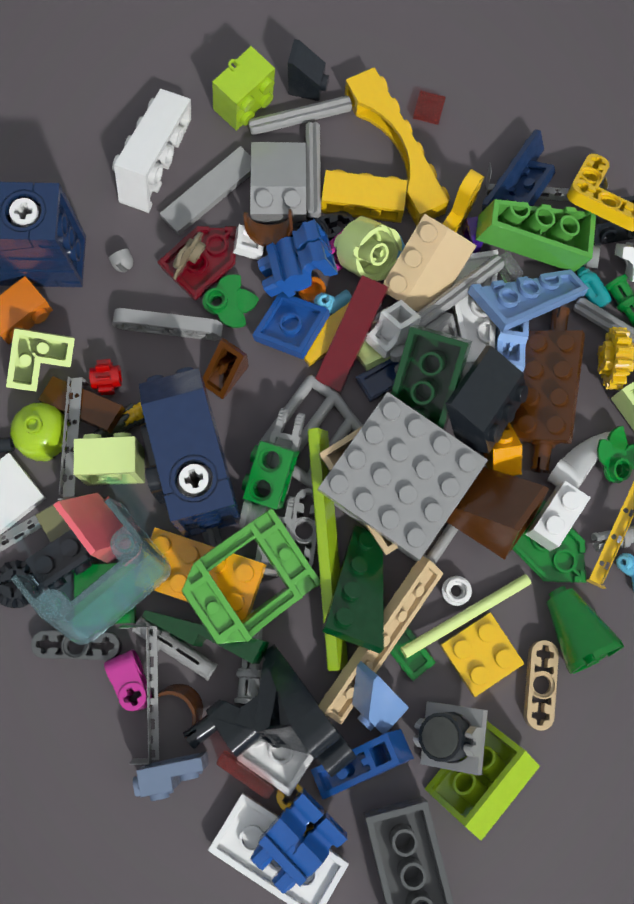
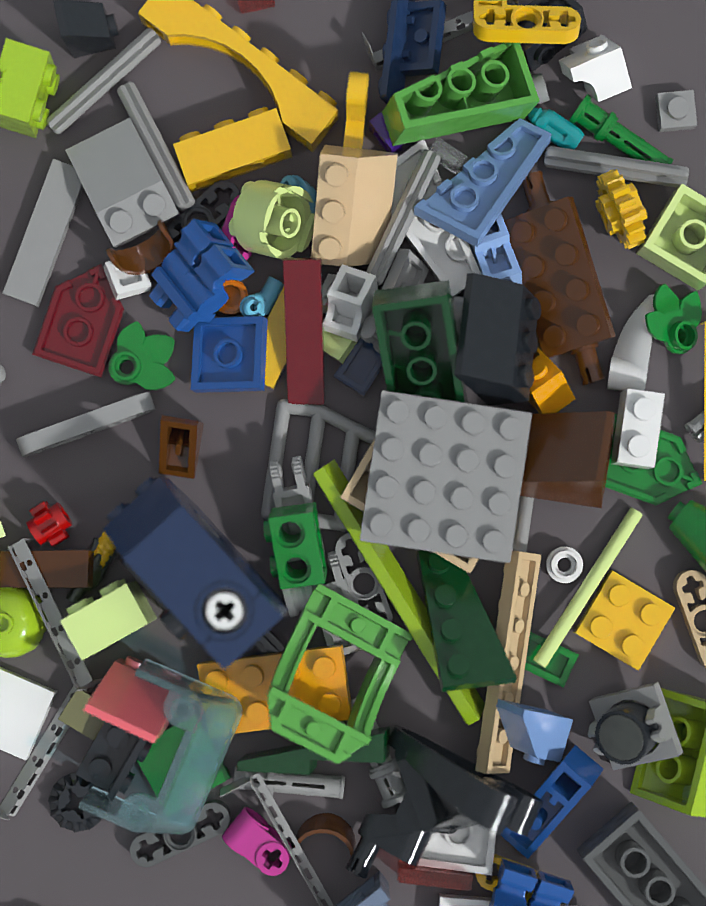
camera: 20 degrees left, 10 degrees up
(190, 252) = (68, 326): dark tan plate -> none

